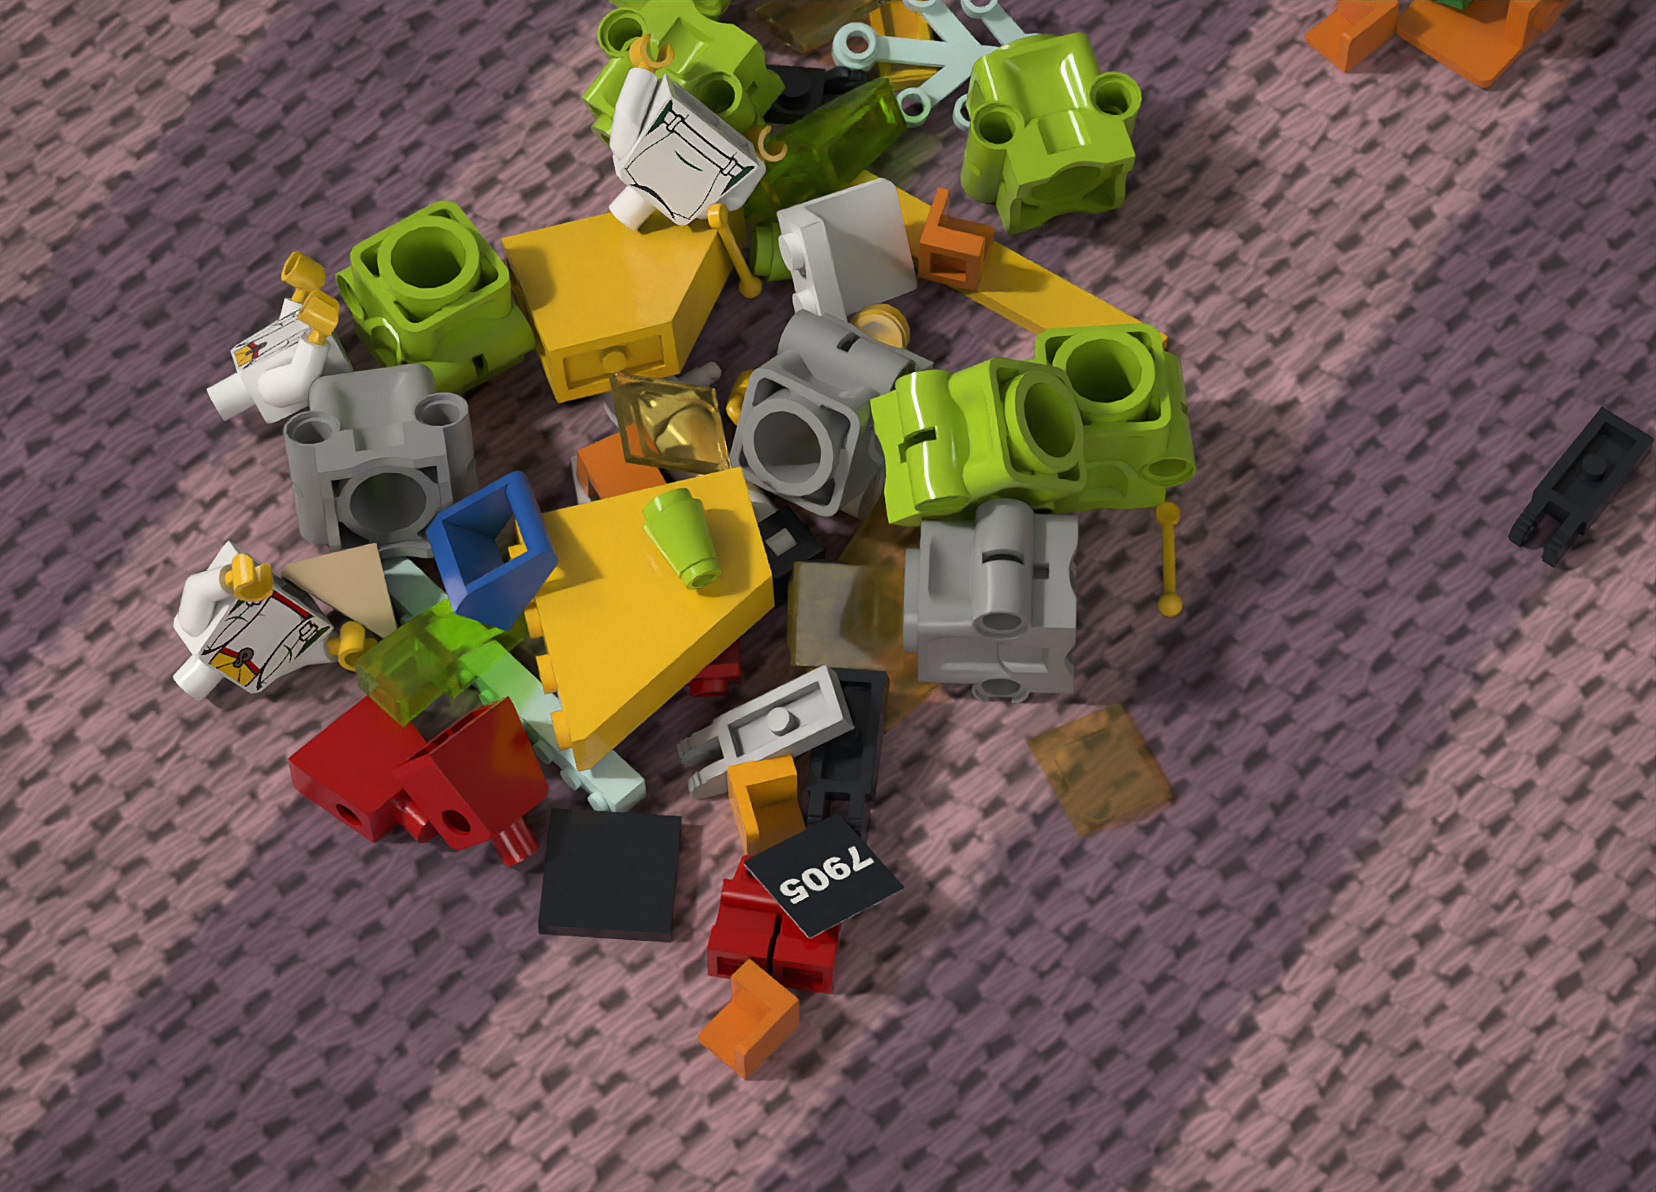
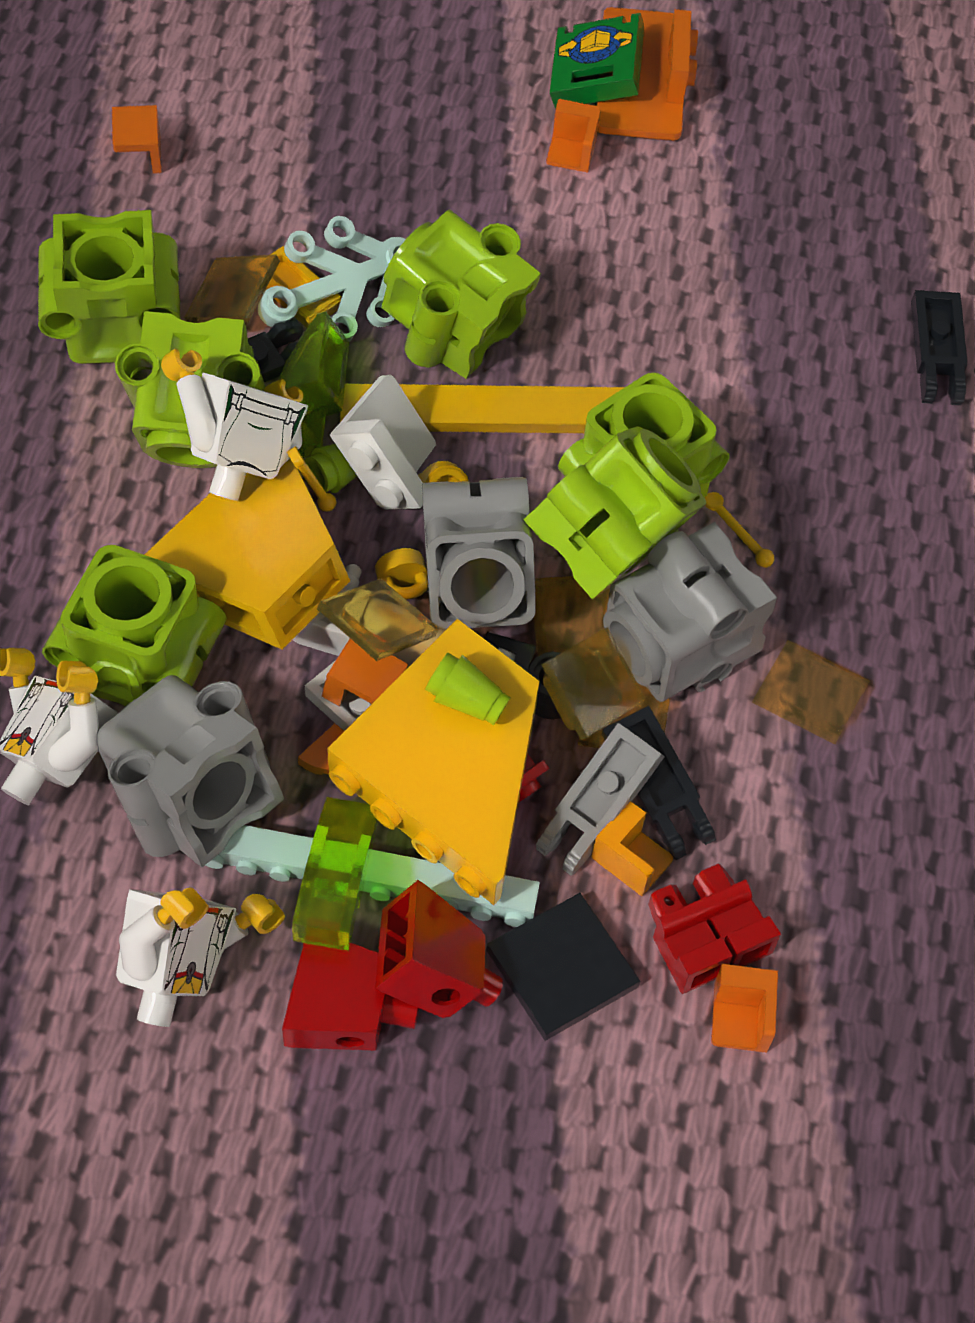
camera: 40 degrees left, 0 degrees up
(349, 583) = (230, 869): tan slope -> none
(471, 562) = (317, 803): blue tile -> none
(823, 875) = (721, 873): black sticker -> none
(953, 248) = (450, 401): orange panel -> none

